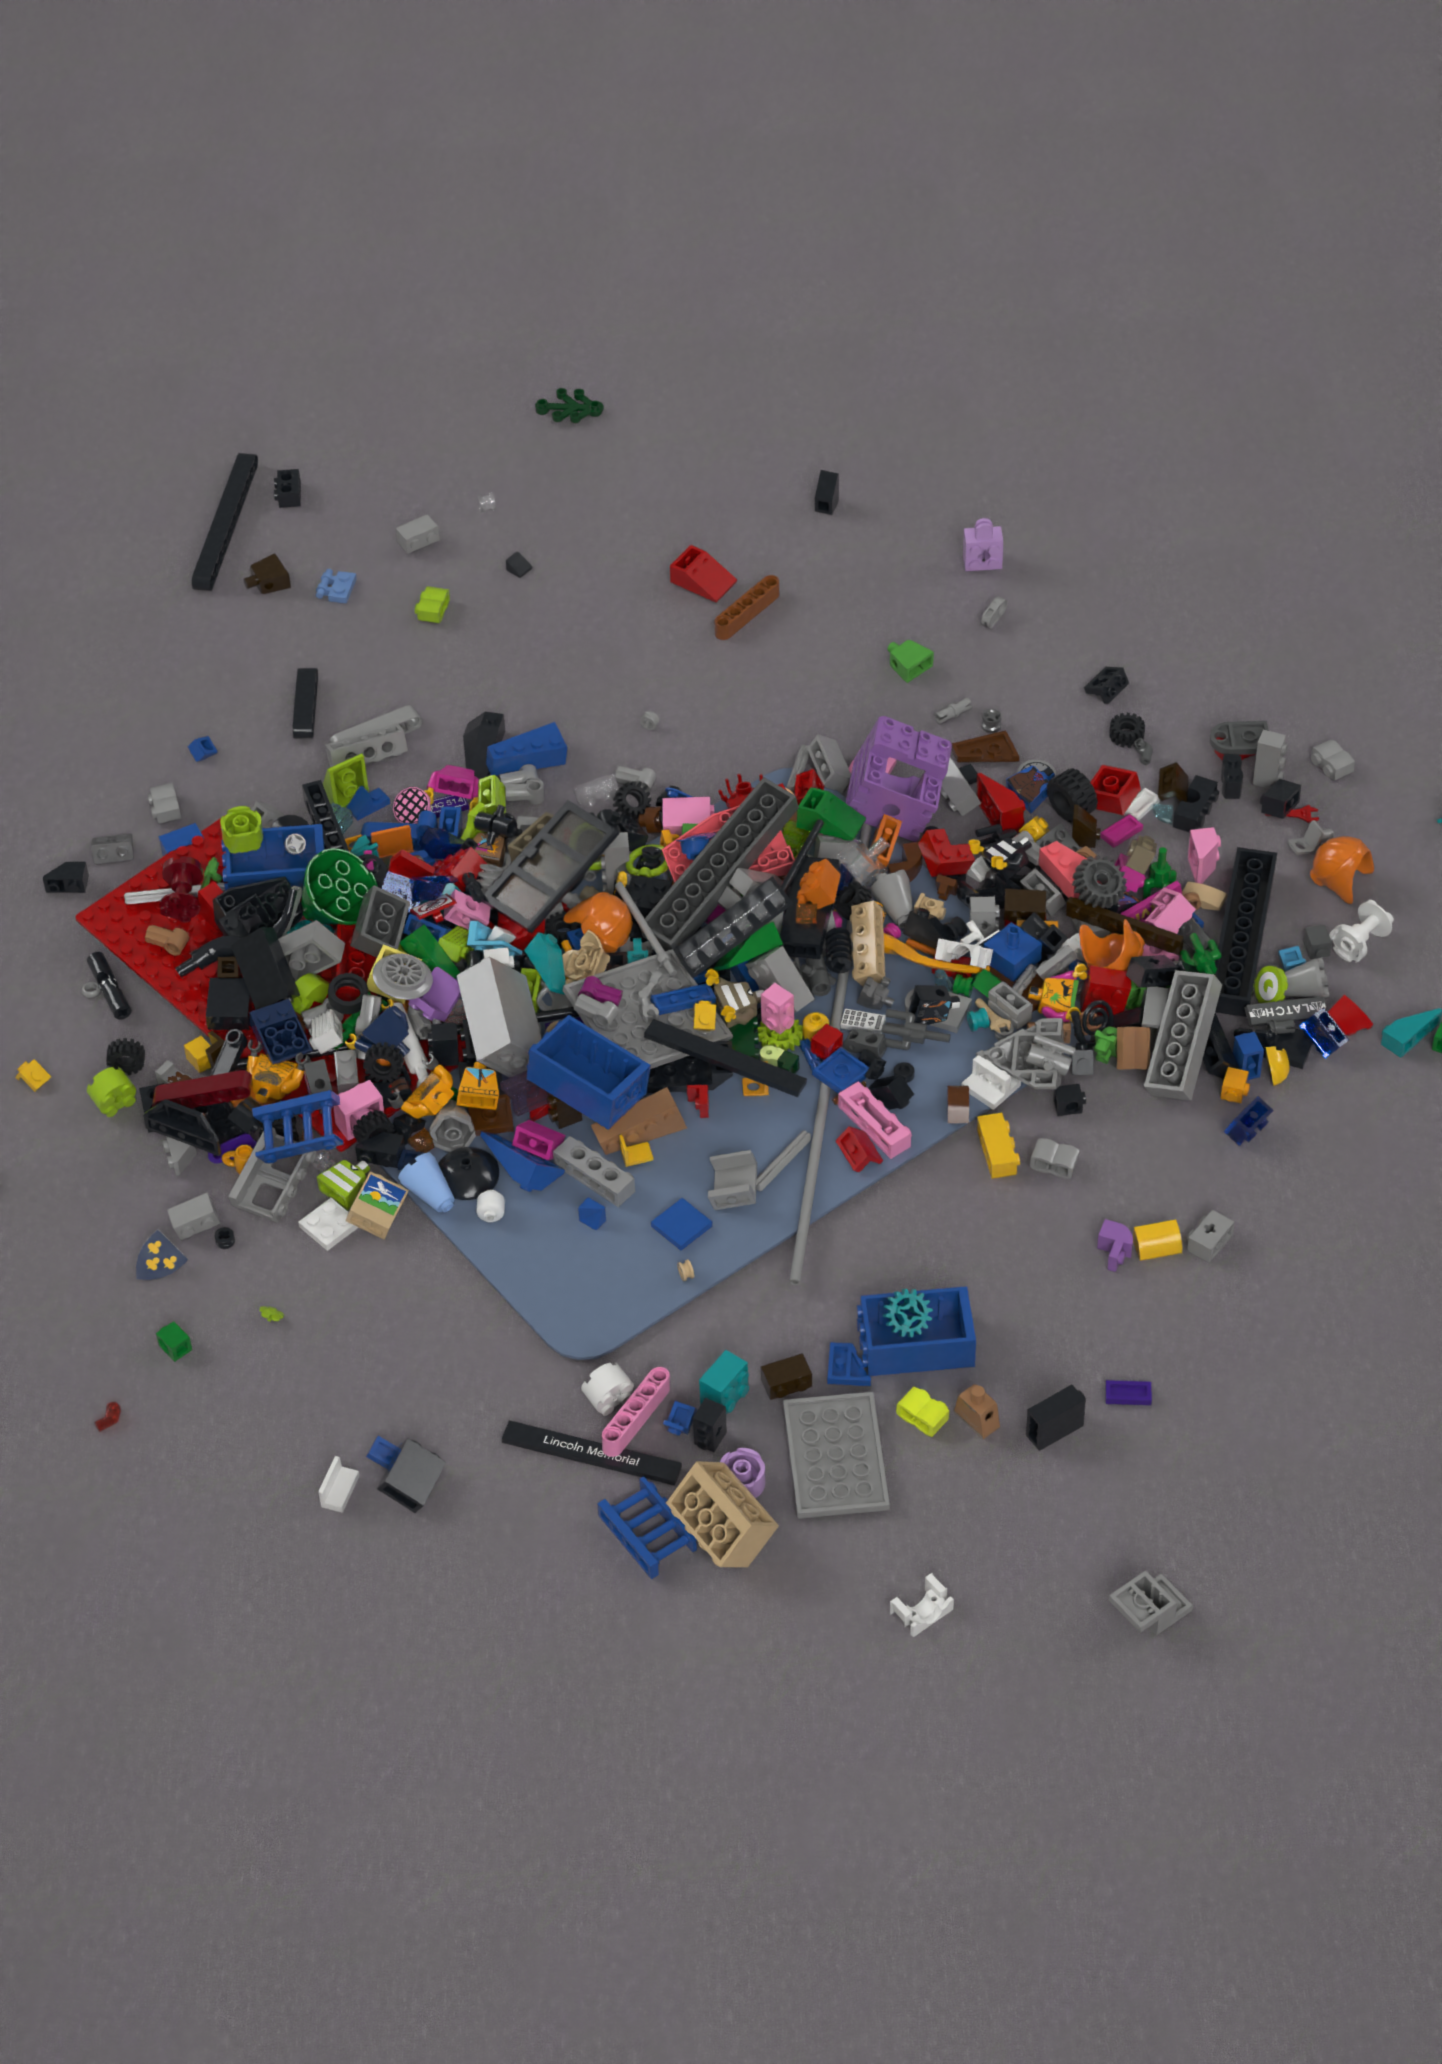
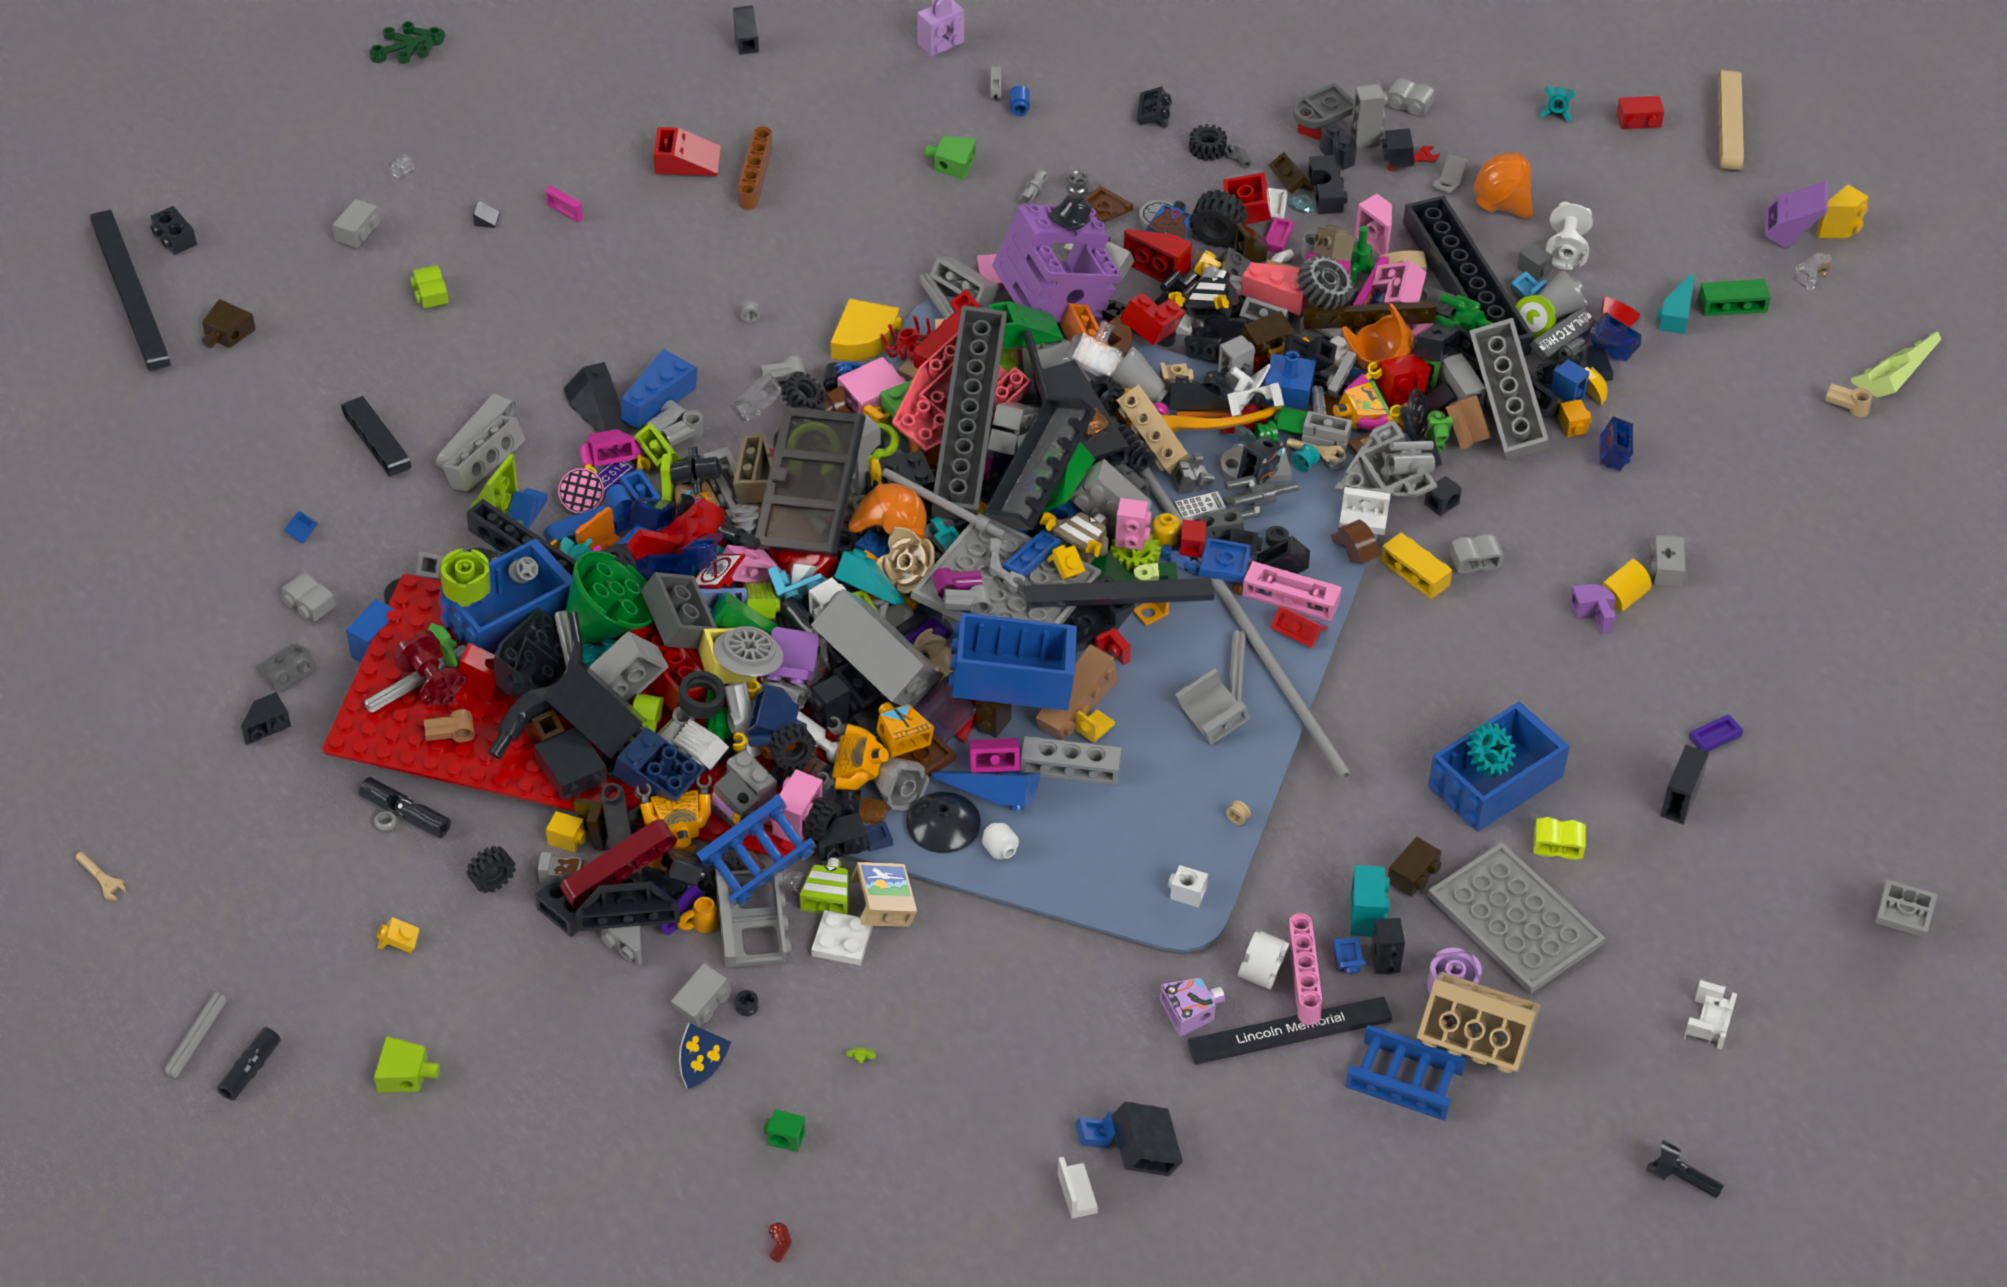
camera: 35 degrees left, 0 degrees up
(111, 1091) = (507, 911): lime brick -> none
(341, 586) = (314, 308): medium blue plate -> none
(428, 1182) = (923, 848): light blue cone -> none
(531, 1395) = (1189, 1004): none -> lavender torso
(580, 579) = (564, 204): none -> dark pink tile
(592, 1213) = (1104, 802): blue slope -> none
(600, 1307) = (1188, 886): none -> white brick
(681, 1224) = (1193, 772): blue tile -> none
(695, 844) = (931, 400): blue piece -> none
(723, 762) = (860, 330): none -> yellow brick
(784, 1697) = (1669, 1163): none -> black piece
(819, 884) = (1087, 385): orange brick -> none
(846, 1366) = (1453, 831): blue wing -> none
(921, 739) = (1072, 212): none -> black piece
(946, 887) = (1172, 349): reddish brown tile -> none
(978, 1411) = (1609, 811): medium nougat torso -> none
(1001, 634) = (1019, 100): none -> blue brick
(1106, 850) = (1283, 256): none -> white arm

